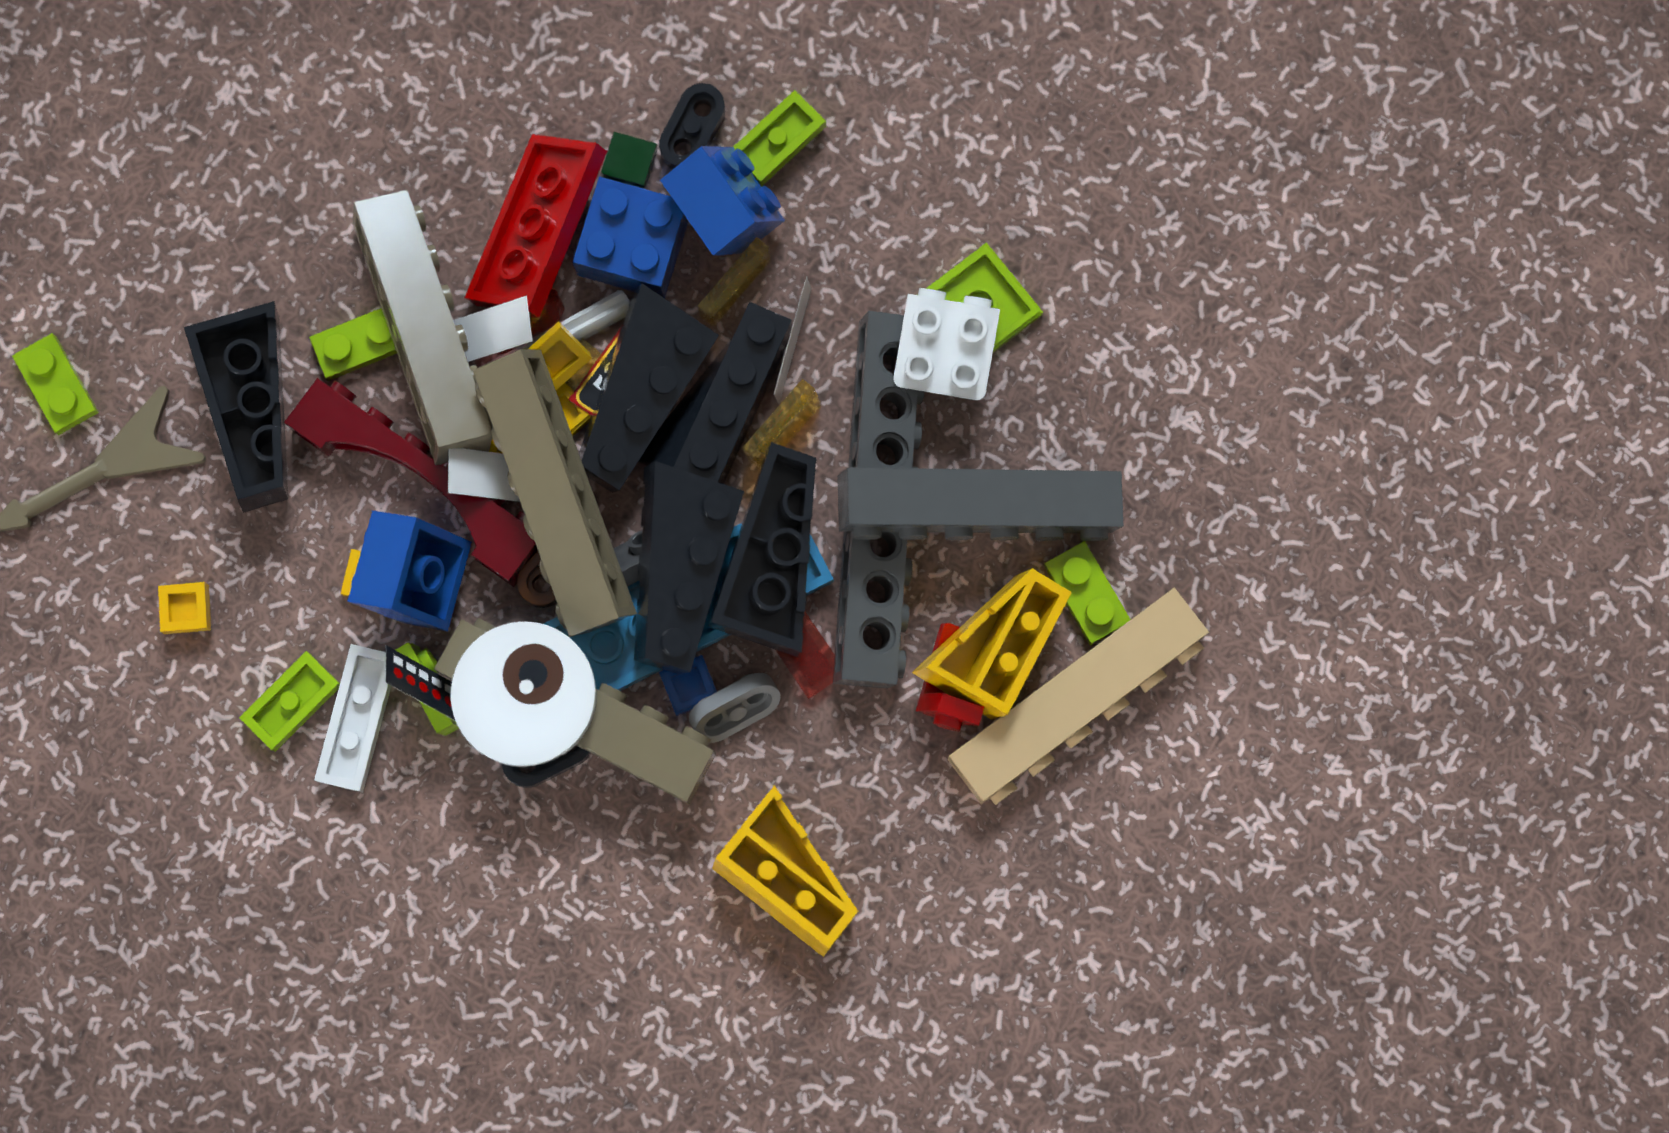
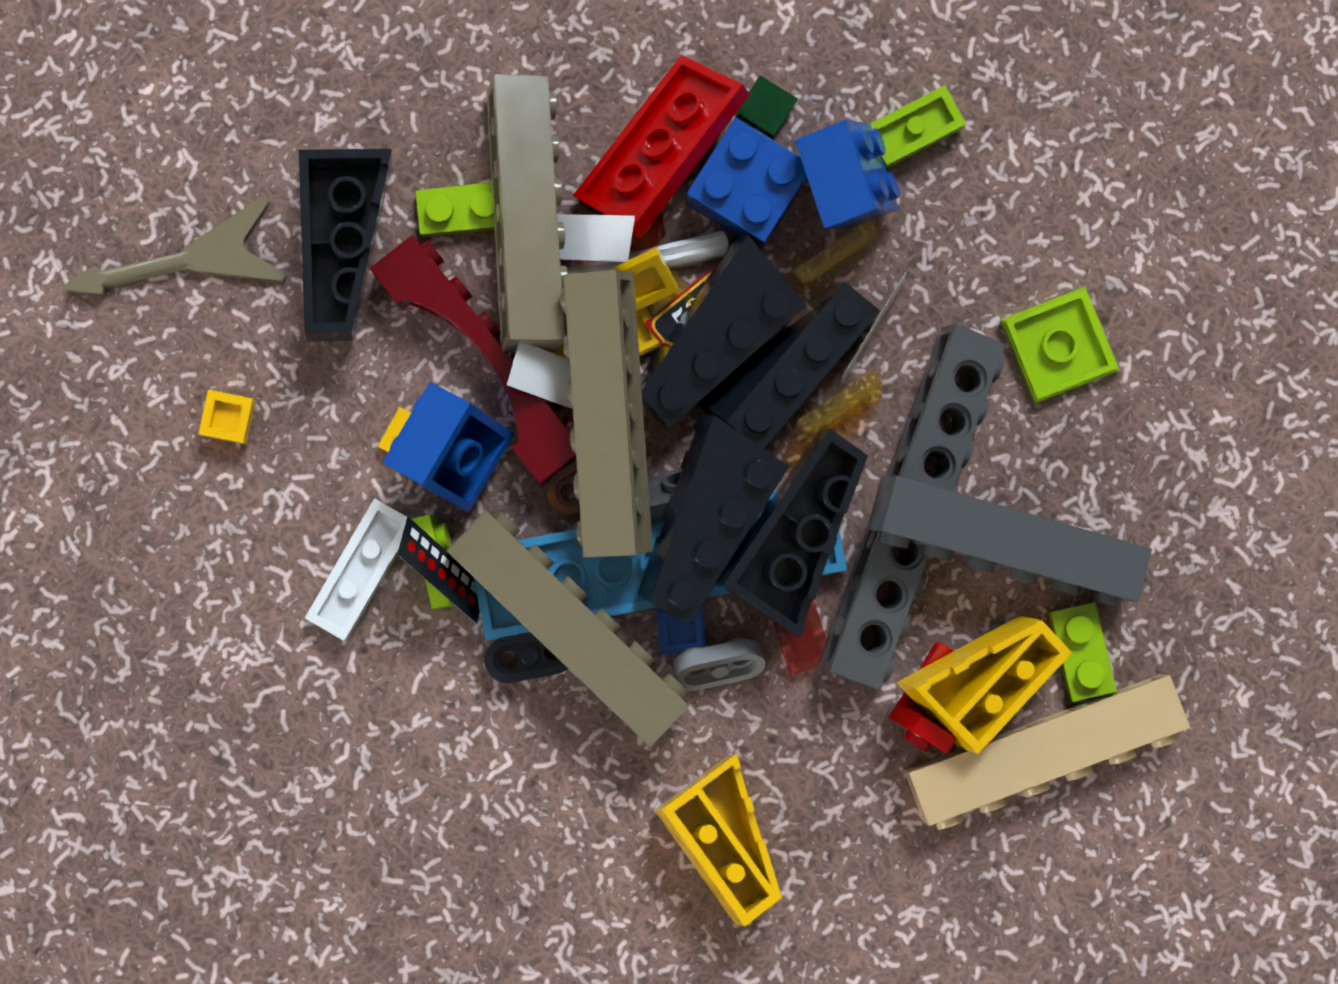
camera: 10 degrees right, 5 degrees up
(55, 384) = (163, 165): lime plate -> none
(290, 701) = (302, 535): lime plate -> none
(523, 694) = (524, 601): white tile -> none
(690, 128) = (834, 92): black plate -> none
(946, 345) = (1022, 378): white bracket -> none

